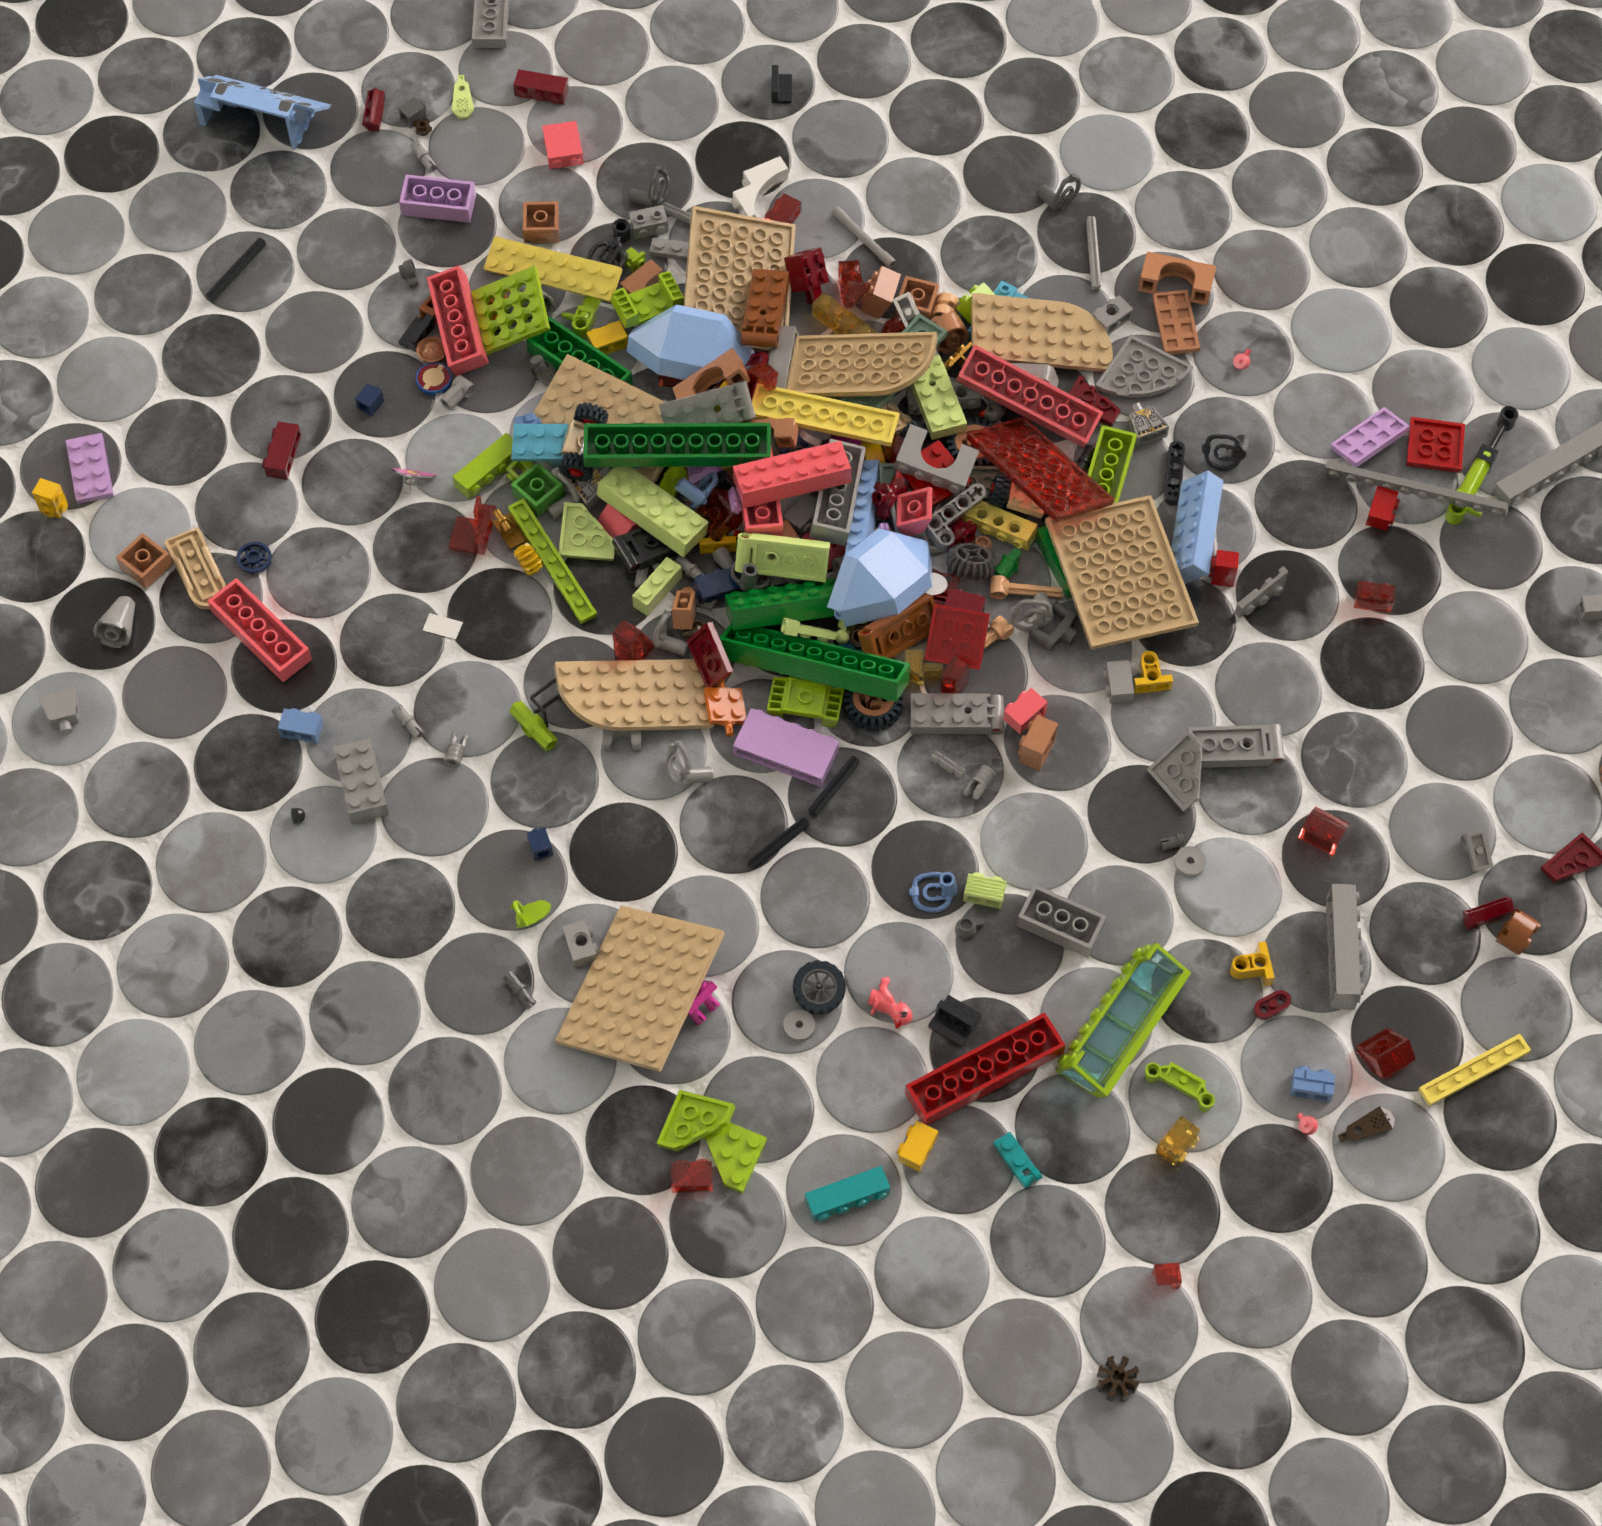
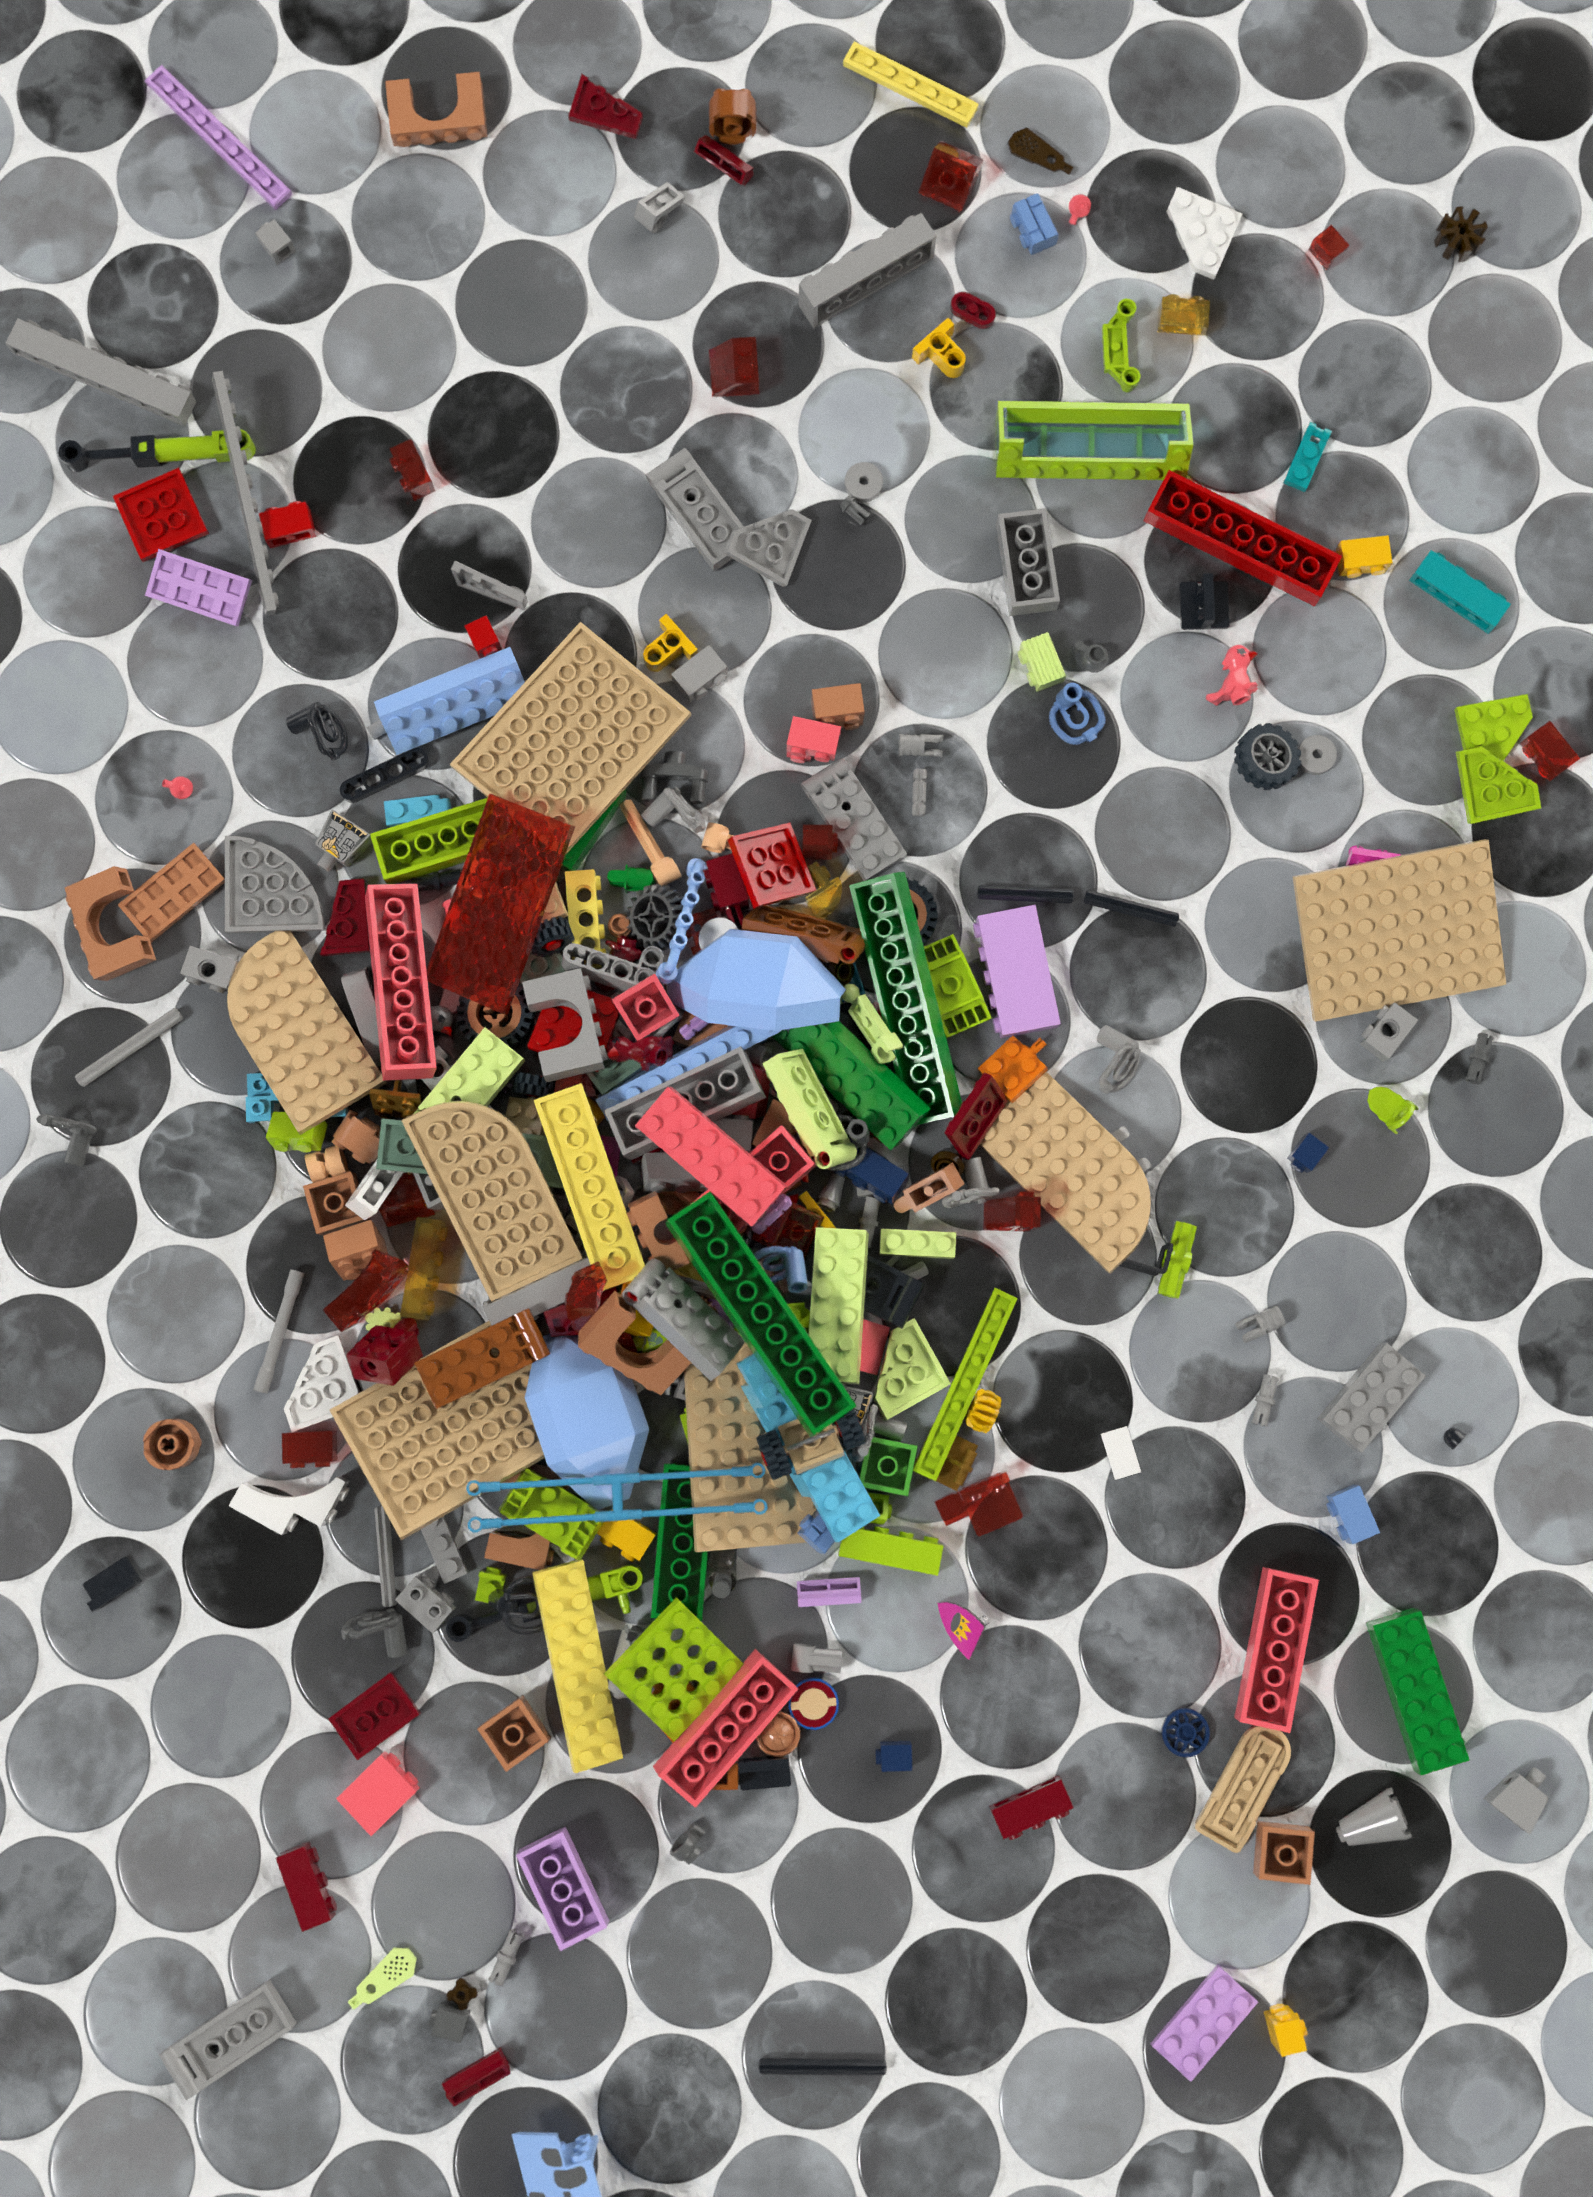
camera: 125 degrees left, 20 degrees up
(170, 693) = (1417, 1691): none -> green brick
(489, 421) = (829, 1592): none -> lavender piece
(606, 166) = (374, 1715): none -> dark red plate
(620, 322) = (616, 1481): none -> dark azure bar
(813, 234) = (321, 1385): none -> white plate
(831, 288) = (383, 1318): none -> yellowish green piece
(837, 149) = (157, 1444): none -> nougat brick
(930, 536) = (667, 971): none -> light blue bar
(1139, 477) = (414, 808): none -> medium azure hinge
(1237, 1201) = (1202, 230): none -> white plate

